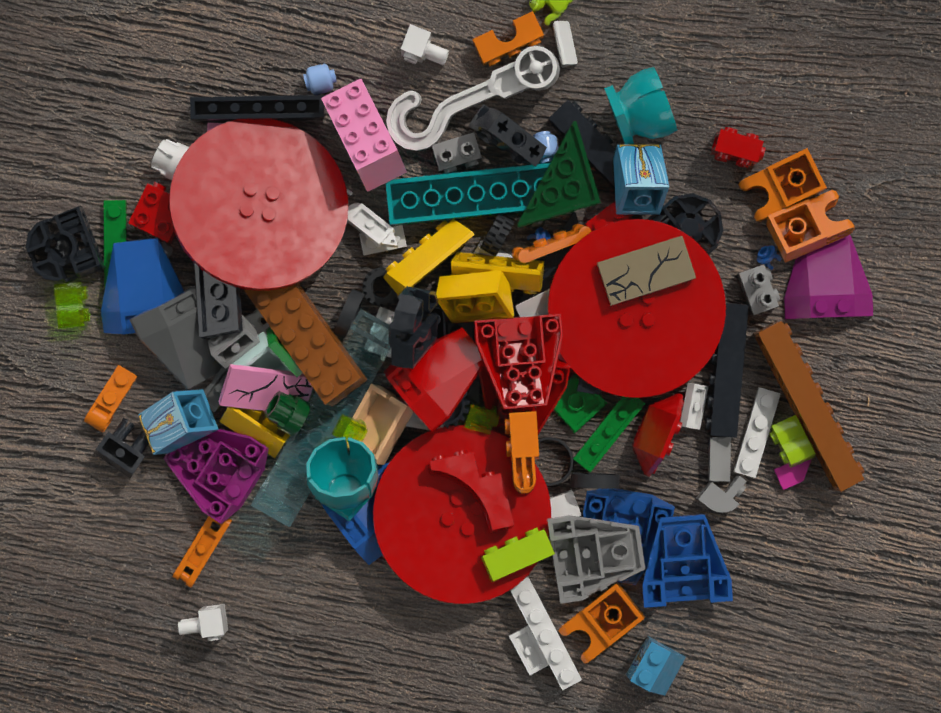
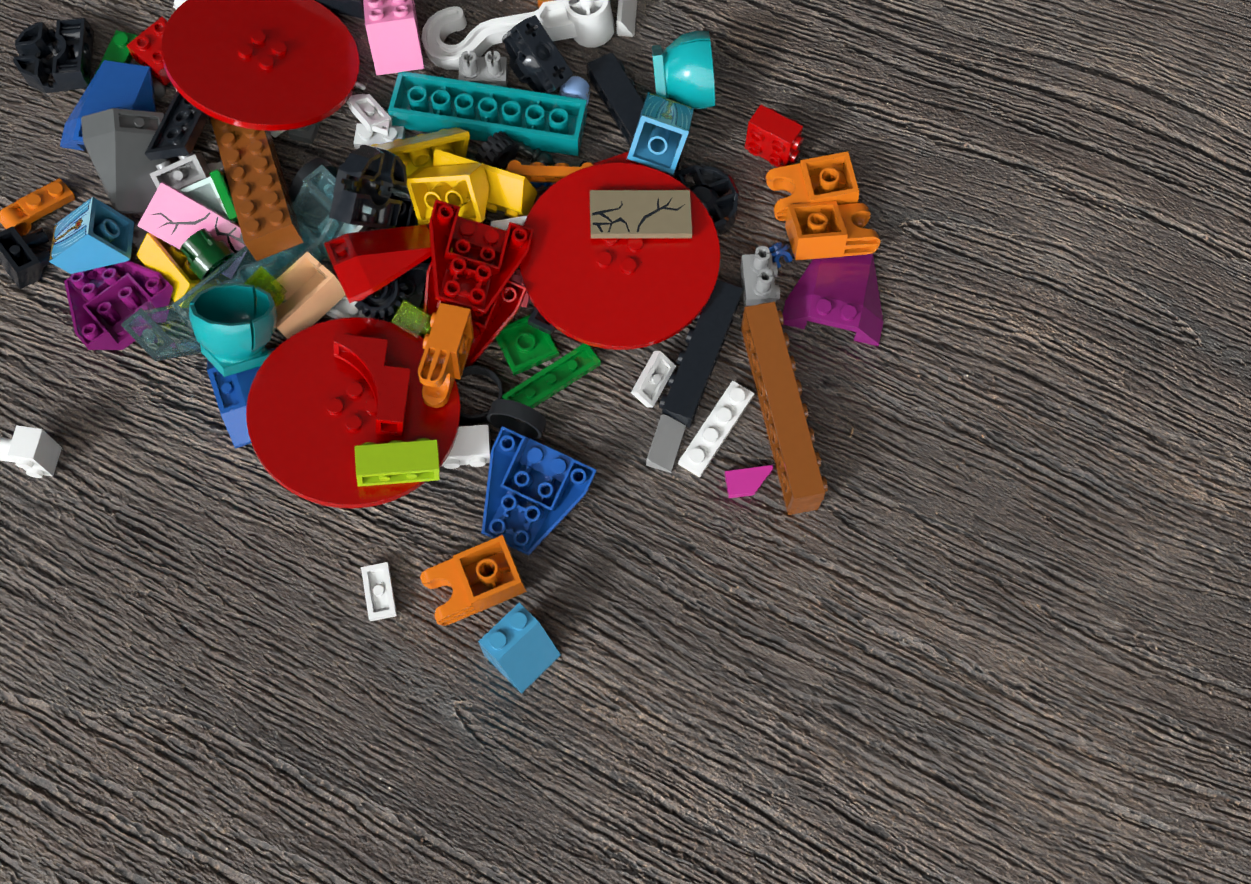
camera: 15 degrees right, 20 degrees down
(71, 305) = (38, 110): clear neon green brick -> none
(200, 551) = (60, 380): orange plate -> none
(545, 634) = (403, 573): white brick -> none
(566, 183) = (580, 119): dark green tile -> none
(592, 554) = (486, 494): light grey wedge -> none
(656, 432) = (621, 365): red wedge -> none
(685, 564) = (589, 538): blue wedge -> none
(721, 500) = (652, 485): light grey brick -> none
(792, 441) = (753, 443): lime brick -> none

